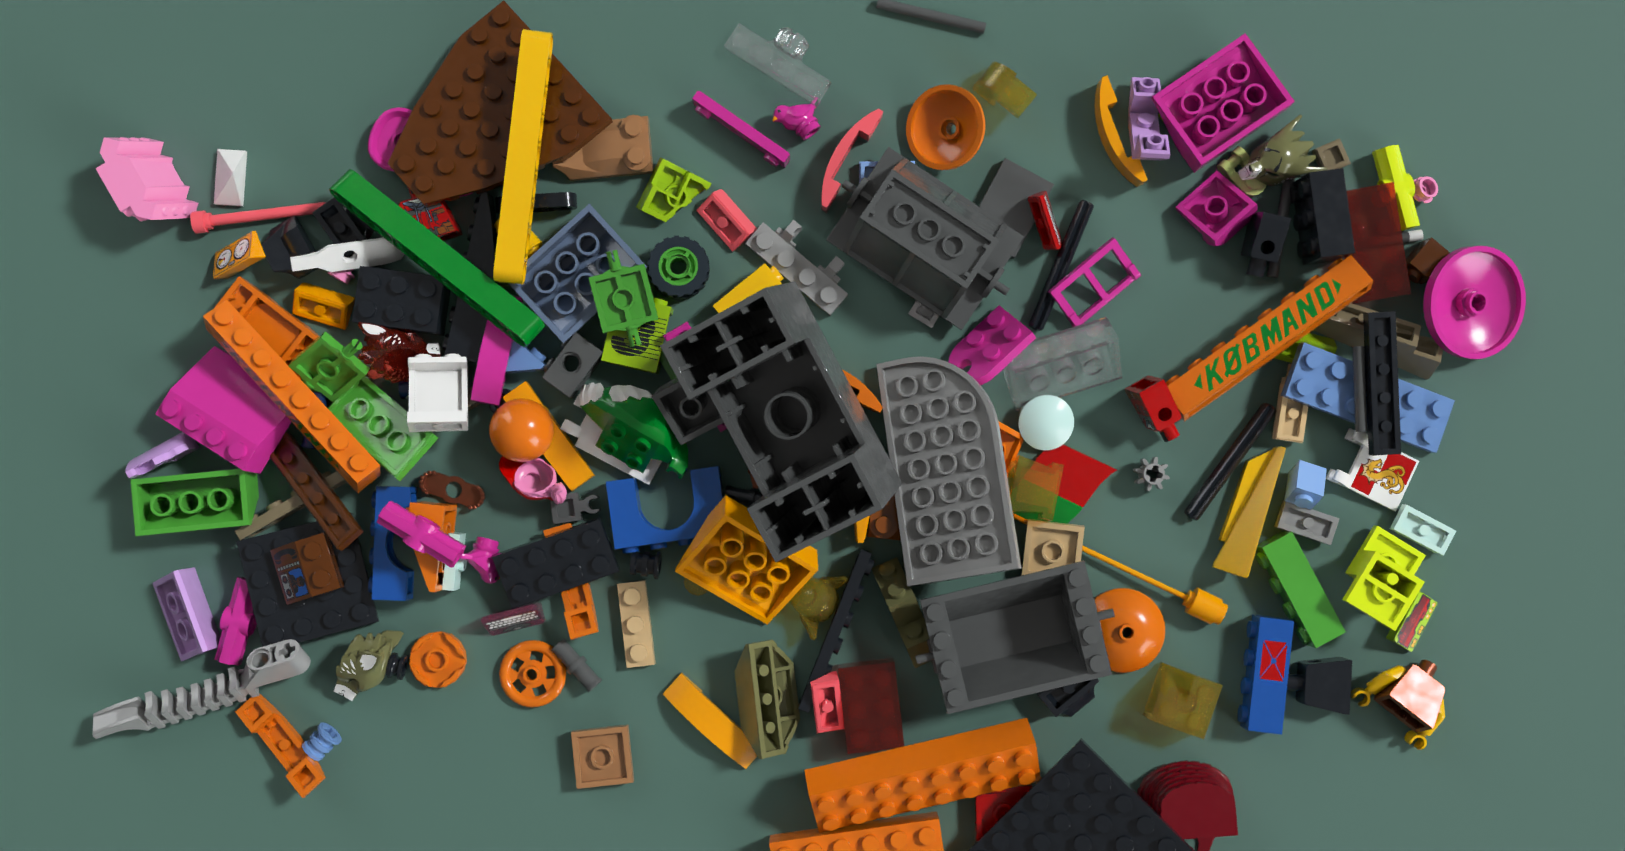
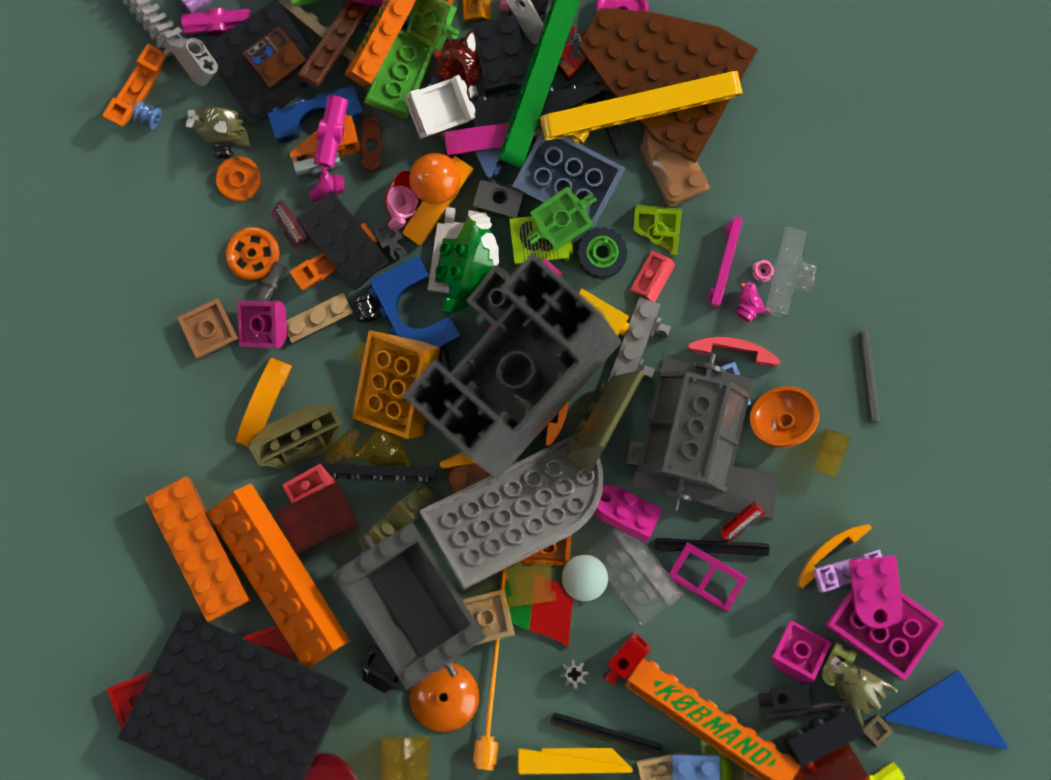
camera: 70 degrees right, 5 degrees down
(620, 692) = (261, 324): none -> dark pink slope
(765, 83) = (769, 270): none -> bright pink plate
(798, 648) = (342, 447): none -> clear yellow dish
(876, 333) = (602, 419): none -> olive slope
(1180, 95) = (875, 588): none -> dark pink plate
(1337, 66) = (949, 710): none -> blue tile

